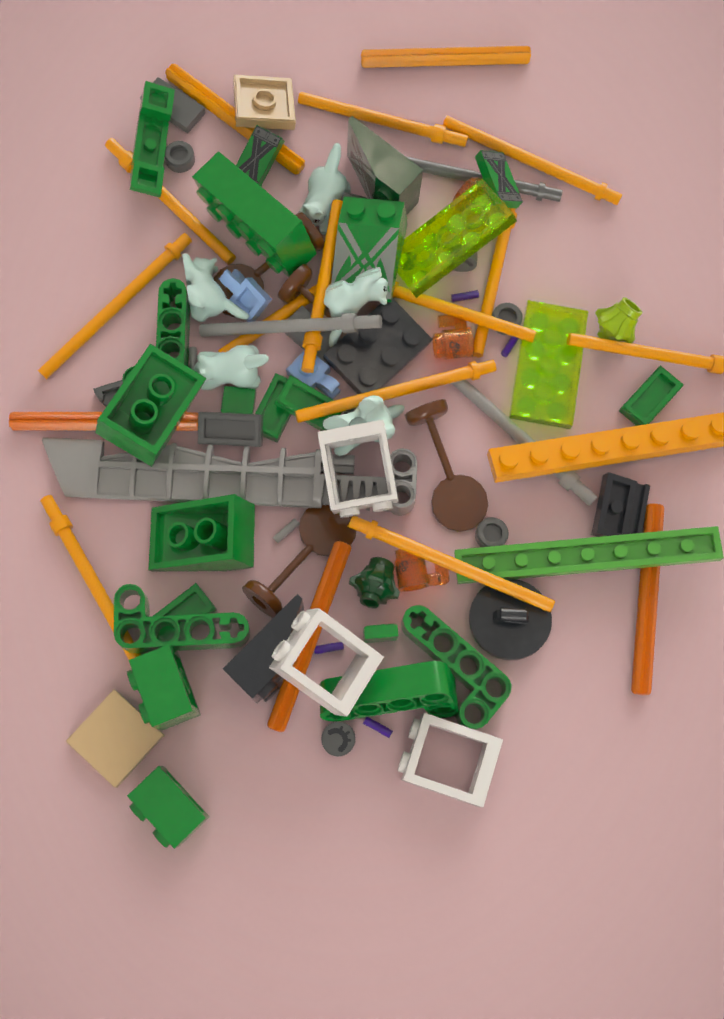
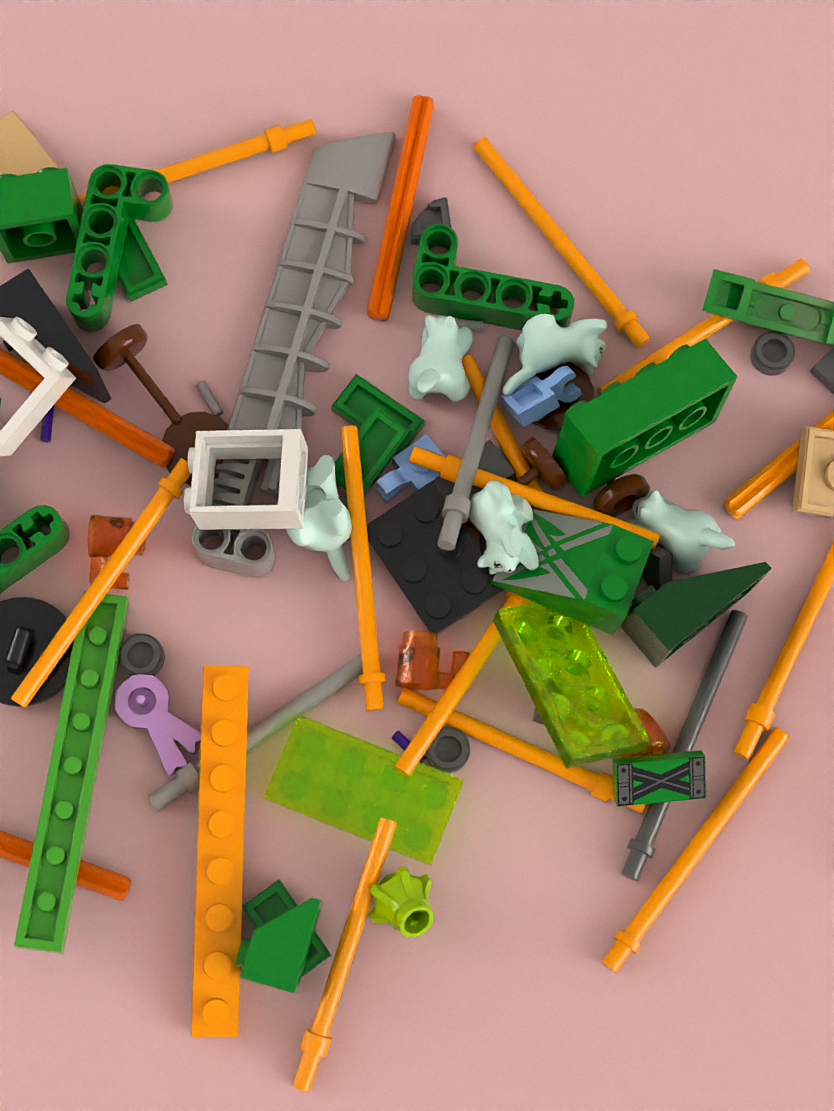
camera: 105 degrees right, 0 degrees up
(149, 405) = (394, 247): green slope -> none
(203, 535) = (219, 295): green slope -> none
(230, 429) = (355, 350): dark grey tile -> none
(238, 400) = (390, 368): green tile -> none
(260, 154) = (747, 449): tile -> none
(375, 583) = (107, 488): dark green rock -> none
(380, 633) = (43, 481): green tile -> none
(459, 499) = (199, 622): reddish brown piece -> none
(464, 296) = (494, 699): dark purple piece -> none
(527, 522) = (144, 703): none -> lavender piece
(620, 506) = (131, 837): black plate -> none
(669, 388) = (280, 948): none -> green slope

